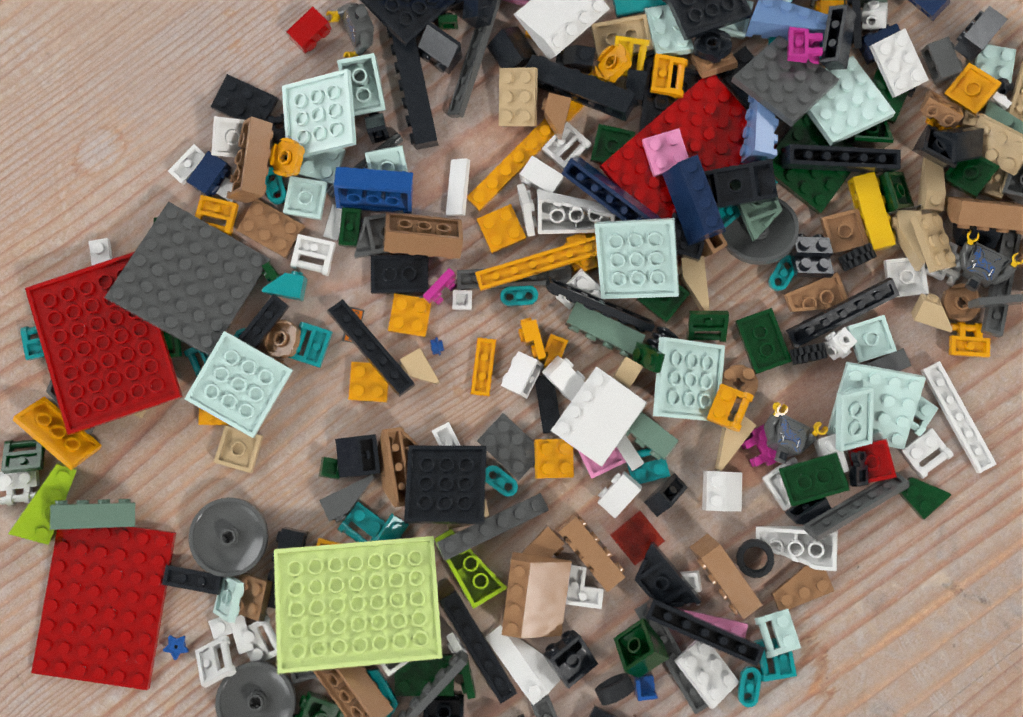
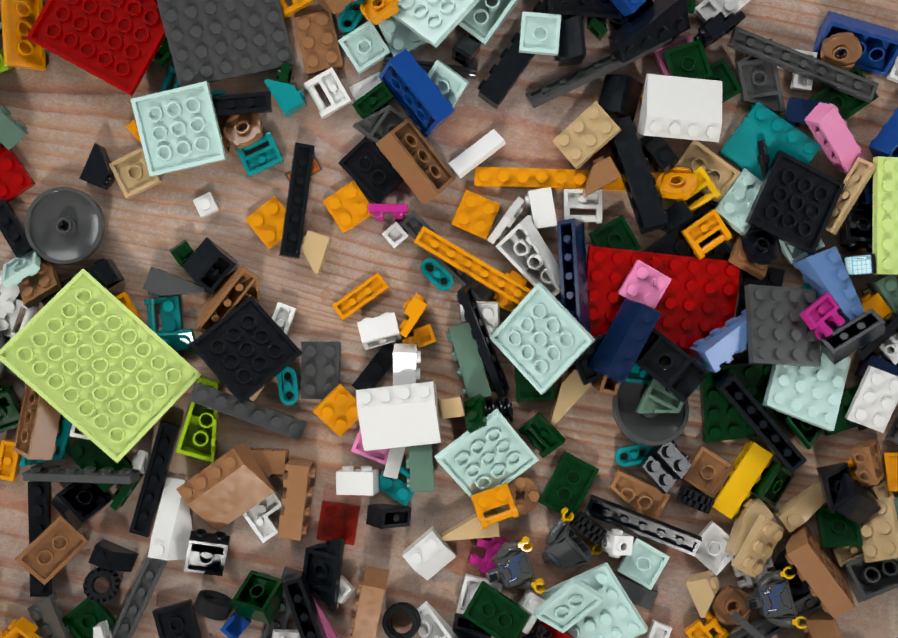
camera: 50 degrees right, 5 degrees up
(210, 474) = (97, 168): none -> black slope
(310, 419) = (206, 205): none -> white plate
(414, 63) = (540, 33): none -> light aqua plate
(436, 346) = (343, 248): blue plate -> none
(808, 382) = (566, 545): none -> dark grey torso

